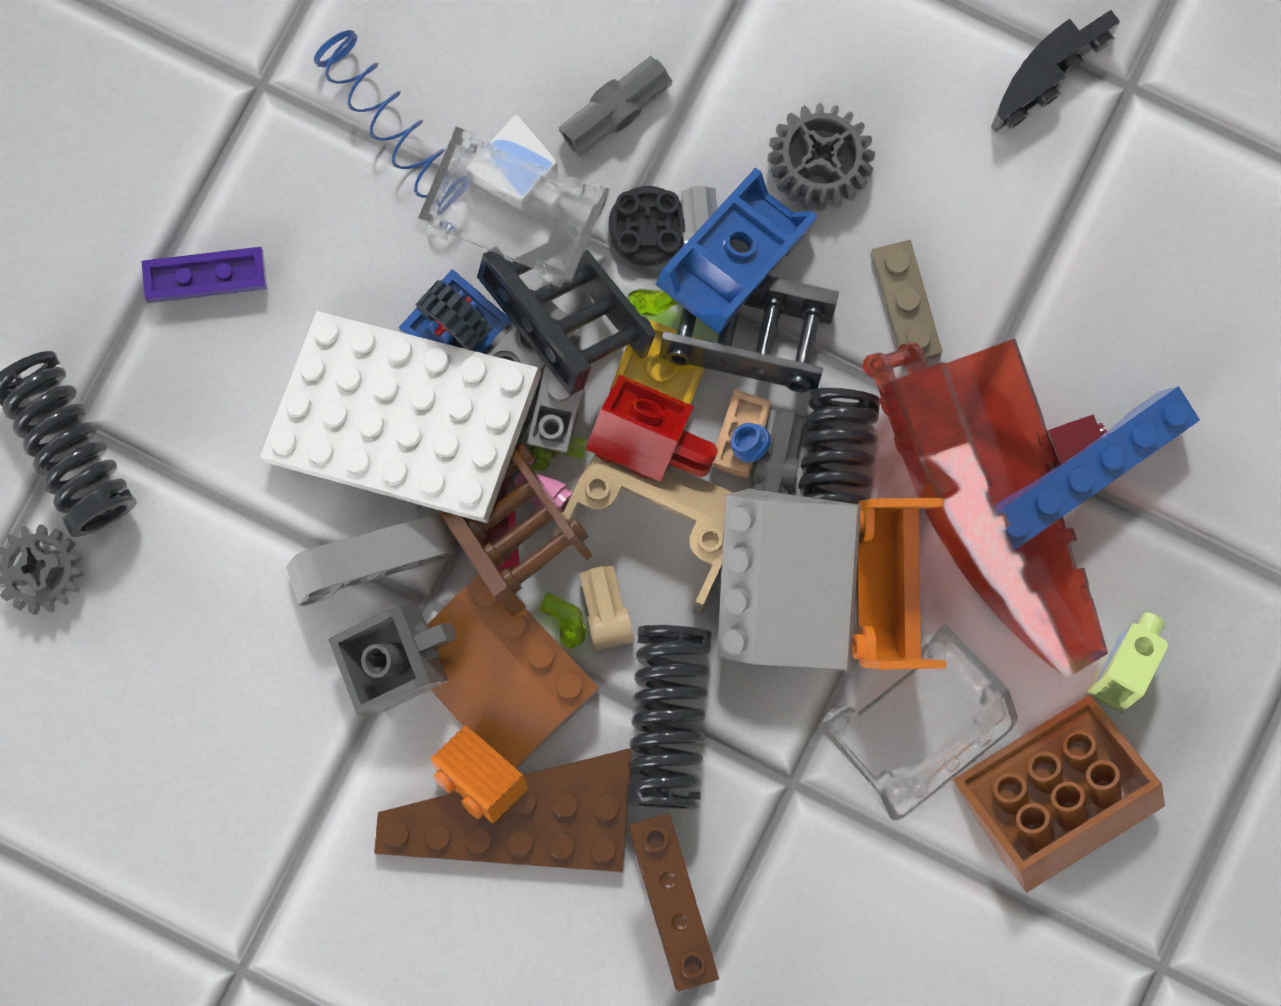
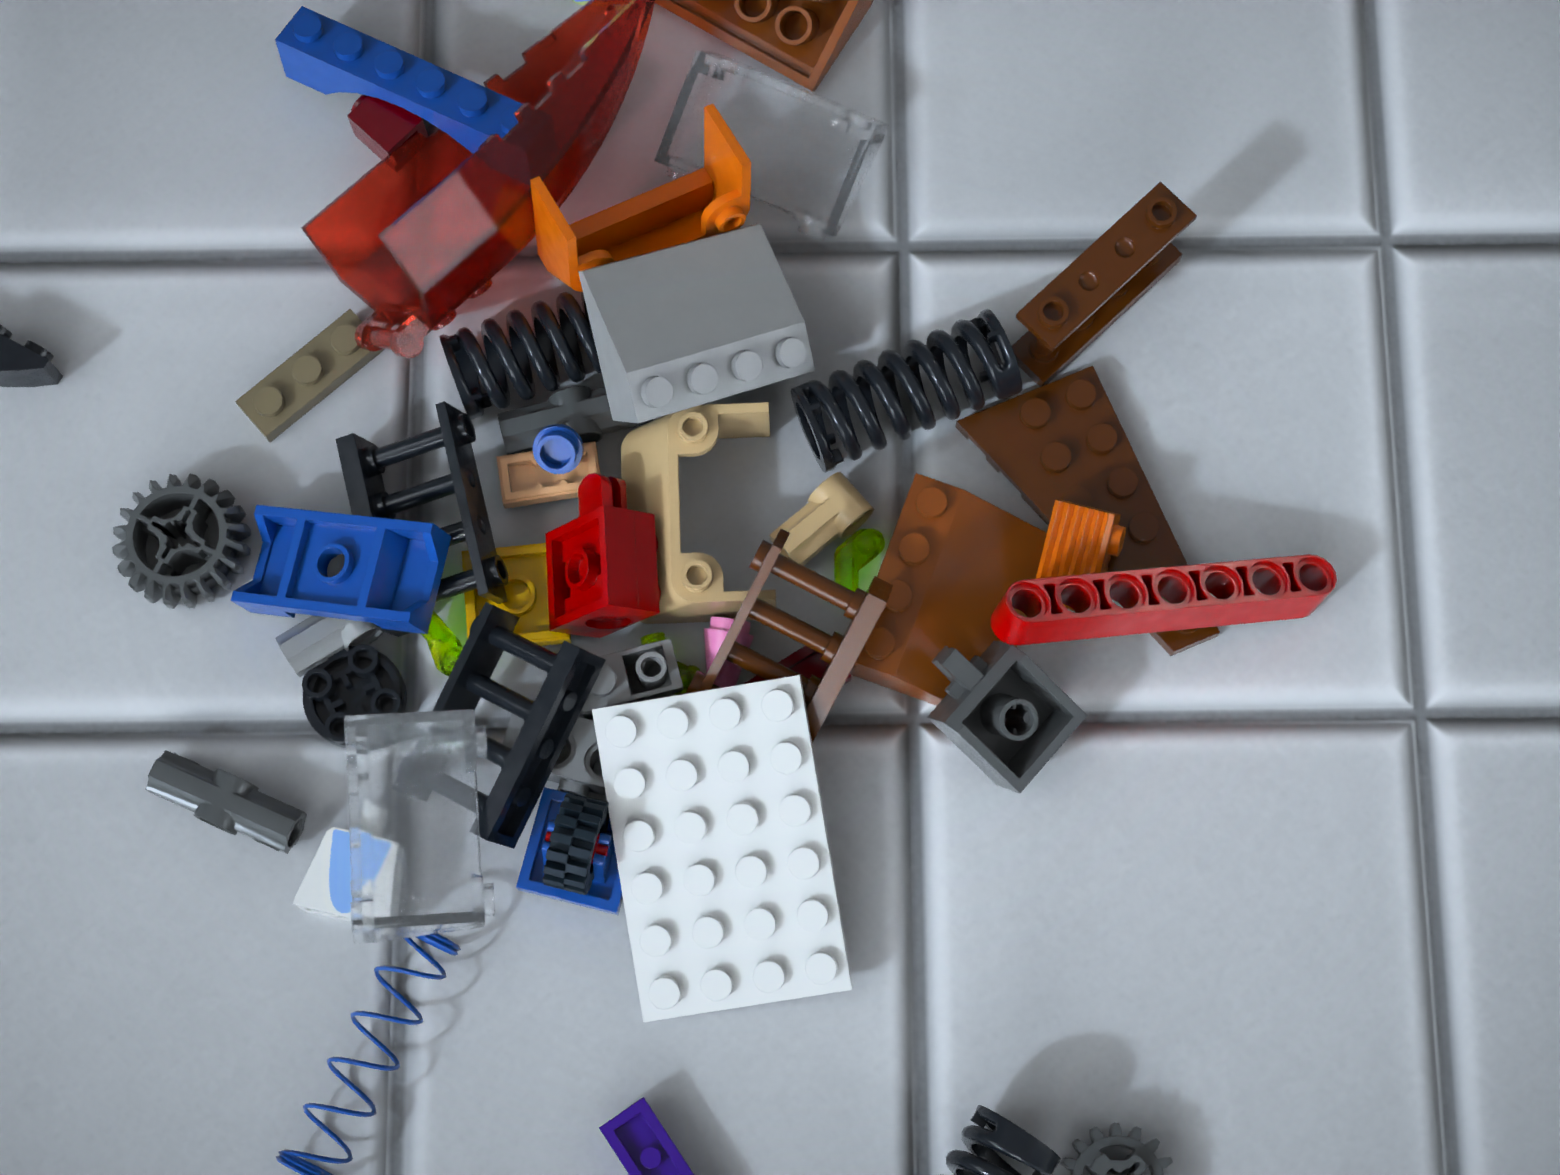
camera: 110 degrees left, 5 degrees down
(369, 556) = (906, 802): light grey beam -> none
(408, 835) = (1287, 586): none -> red beam

